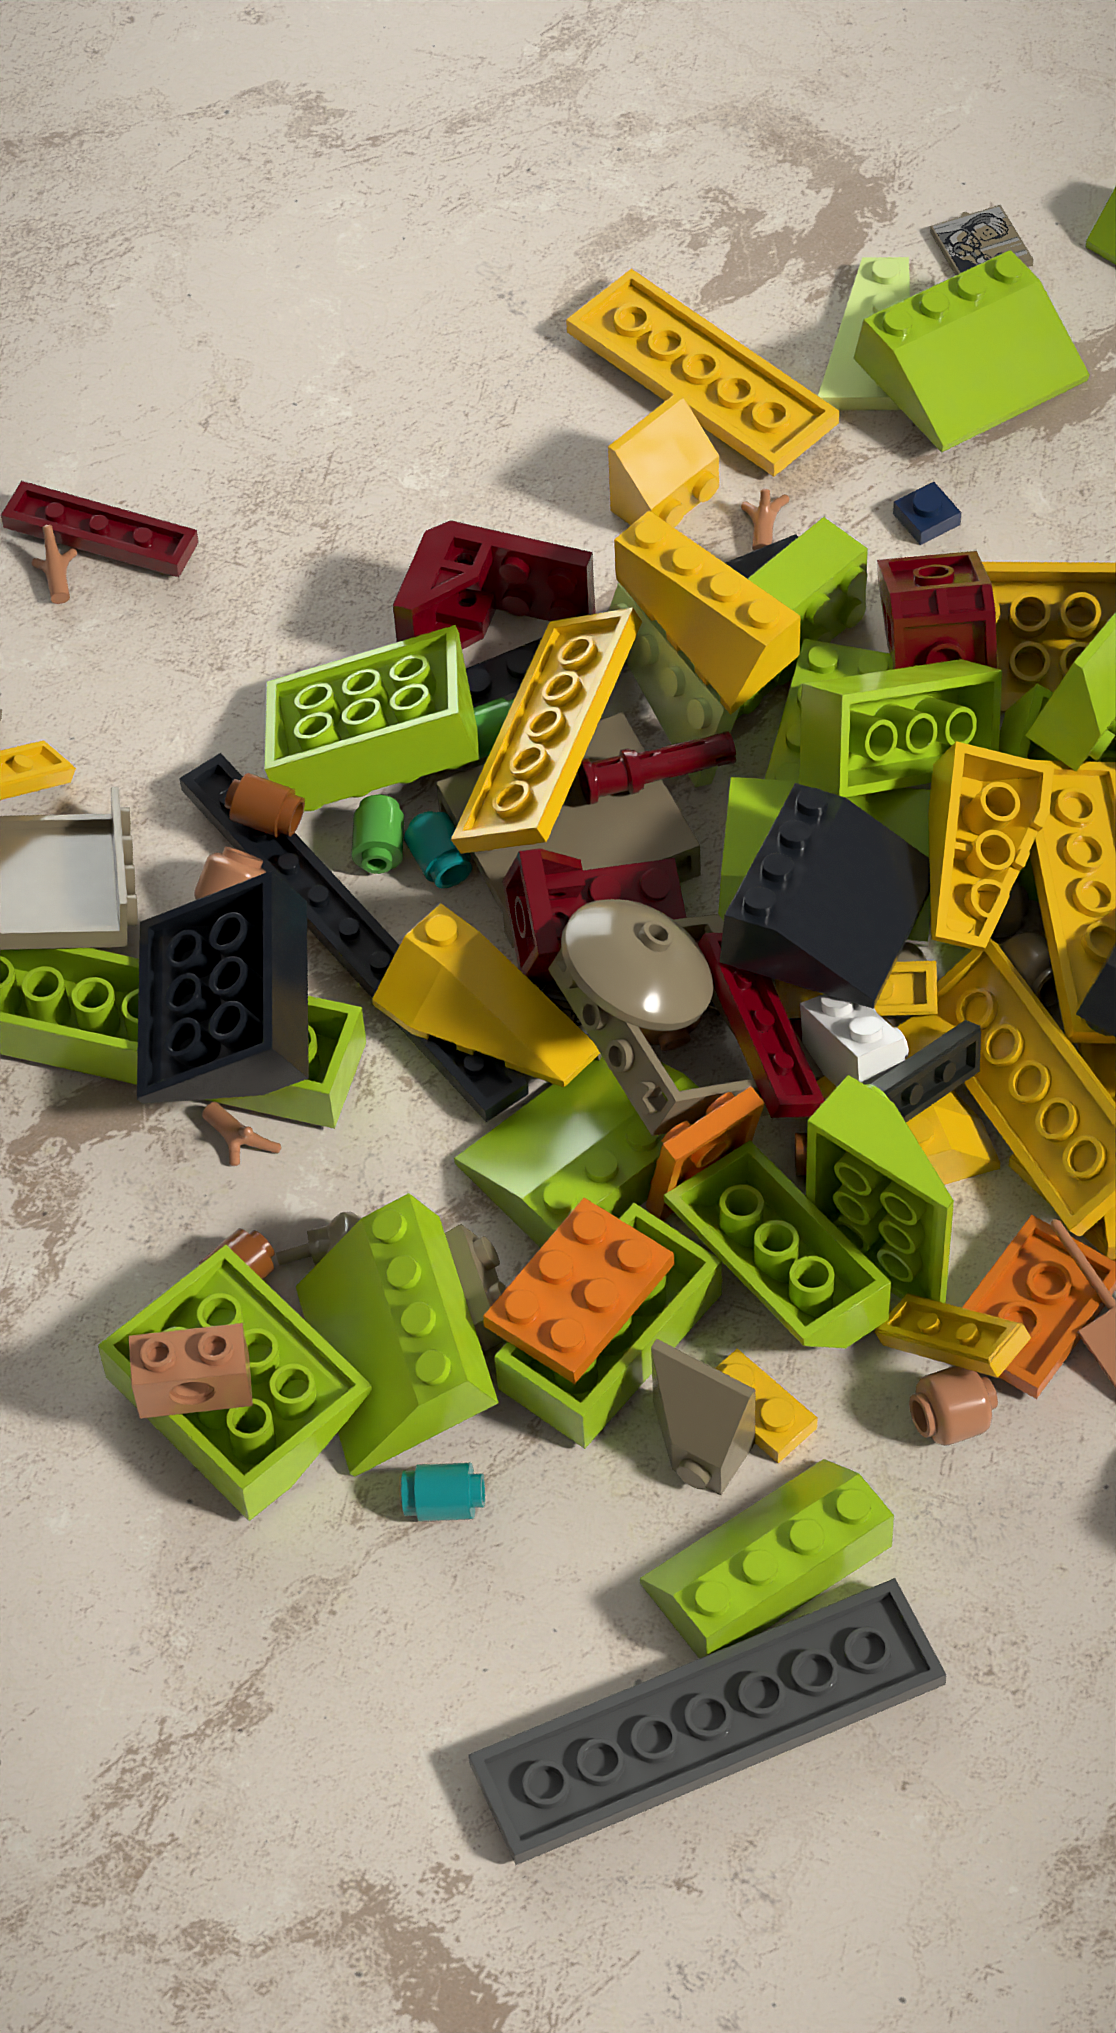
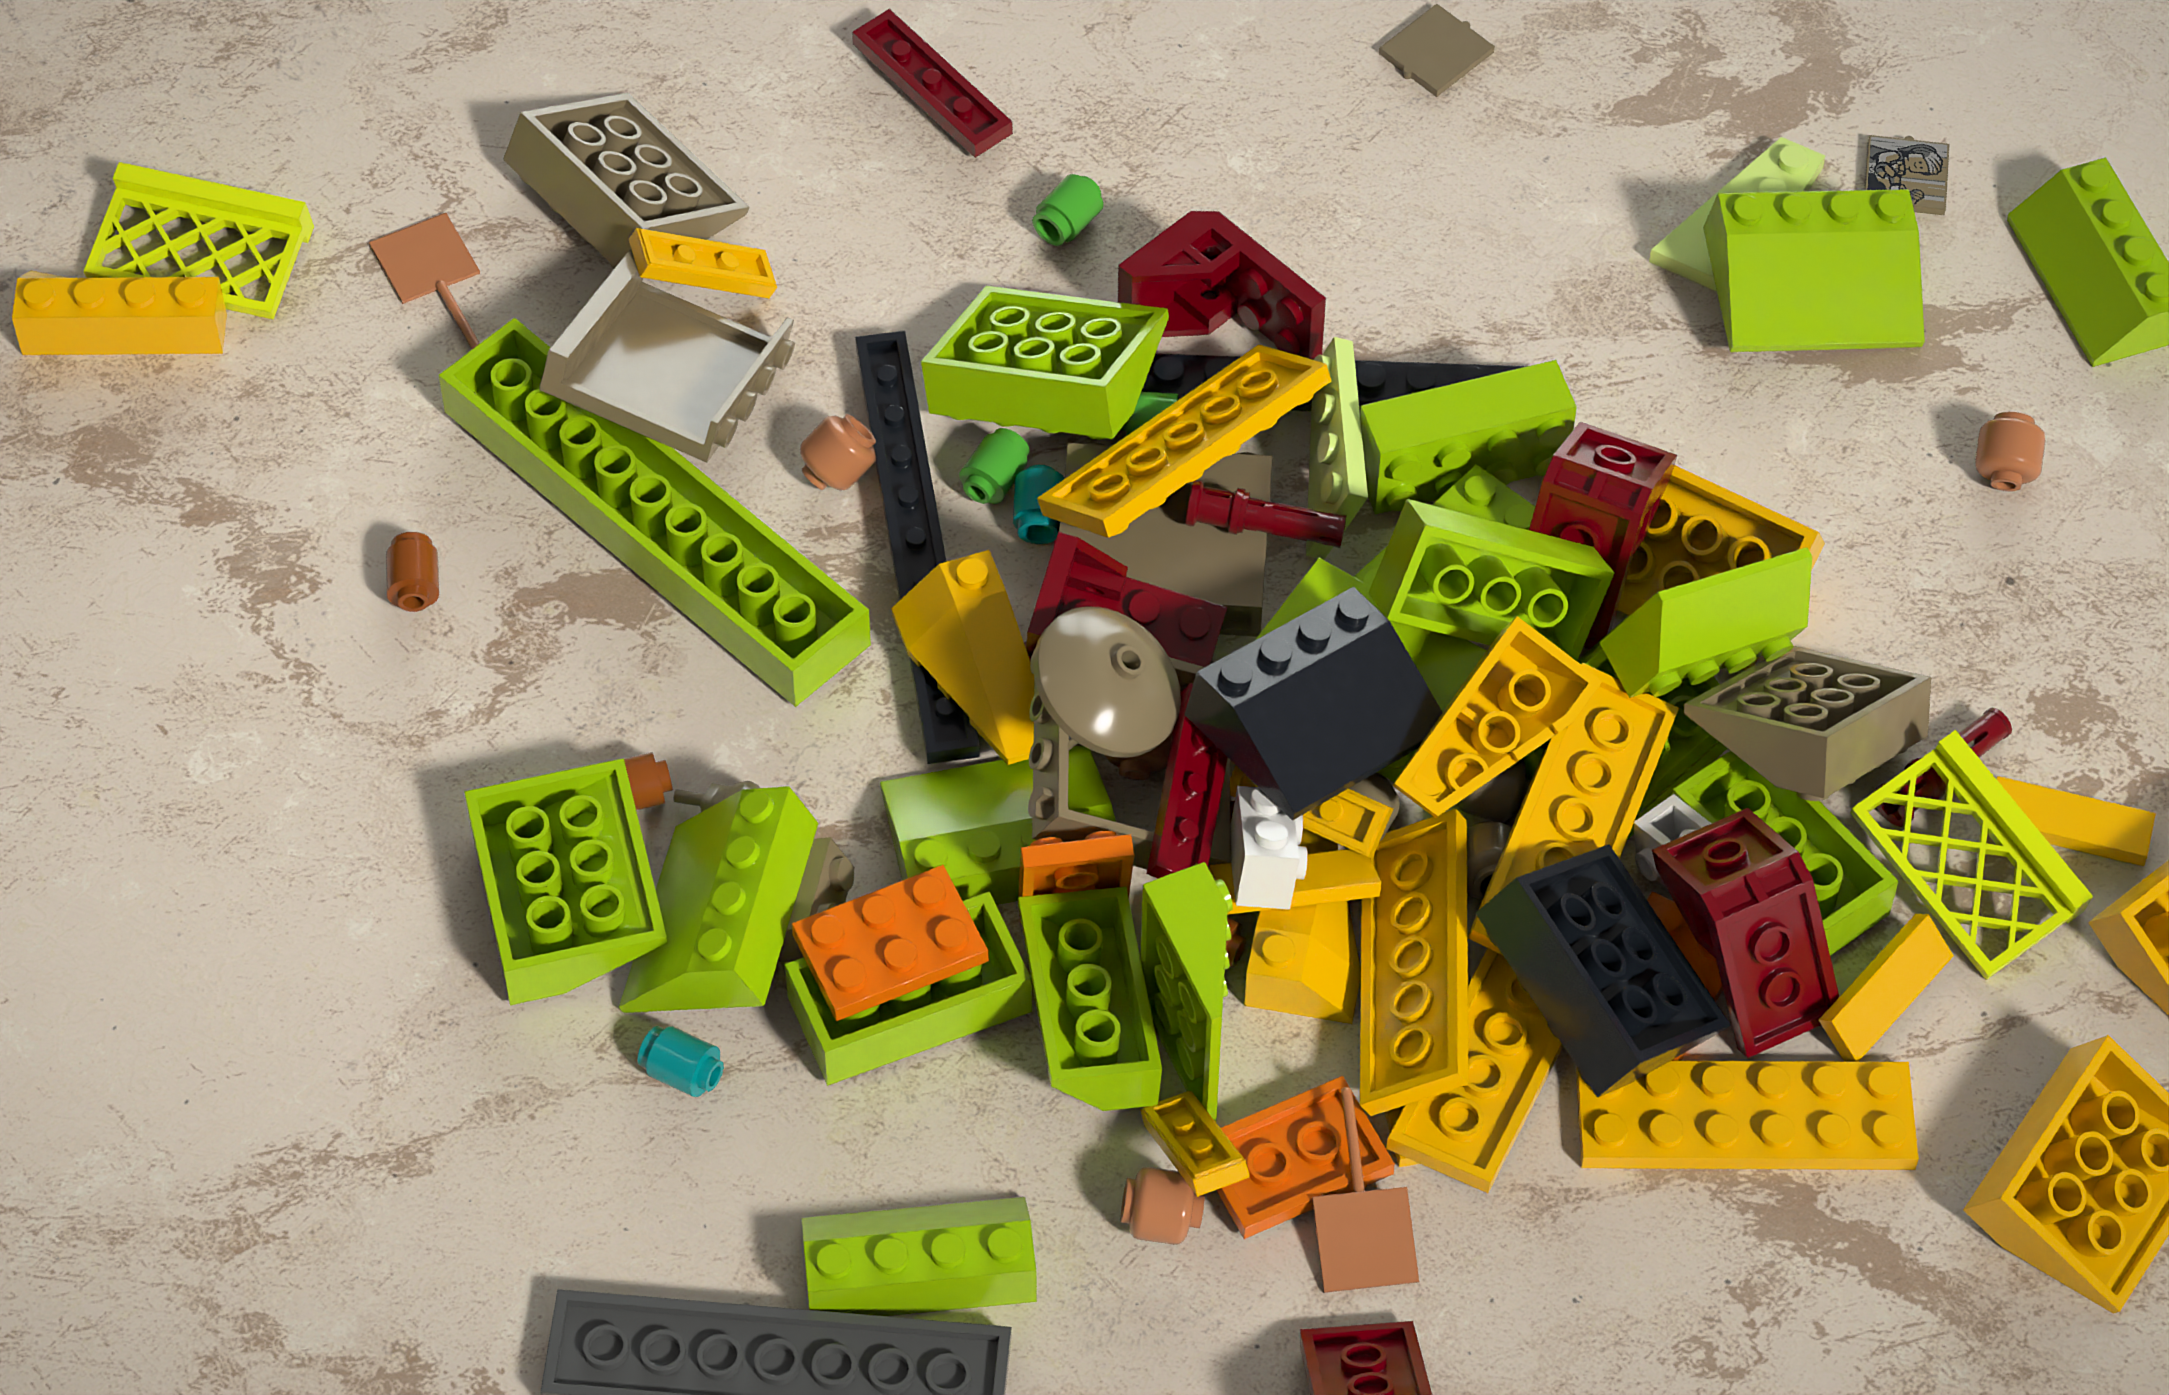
camera: 25 degrees right, 0 degrees up
(55, 567) = (873, 100): nougat bar -> none
(190, 1370) = (517, 848): nougat brick -> none
(224, 995) = (754, 542): black slope -> none
(236, 1133) = (709, 670): nougat bar -> none
(264, 805) = (905, 394): dark orange brick -> none
(295, 584) = (1067, 209): none -> bright green brick
(520, 312) = (1436, 50): none -> dark tan piece
(662, 465) = (1456, 250): yellow slope -> none
(702, 1417) = (931, 1109): dark tan slope -> none
(708, 609) = (1386, 403): yellow wedge -> none
(722, 381) = (1561, 179): yellow plate -> none
(764, 517) = (1530, 338): nougat bar -> none
(779, 1417) = (998, 1123): yellow plate -> none
(927, 513) = (1683, 402): dark blue plate -> none
(933, 1070) = (1308, 906): pearl dark grey tile -> none

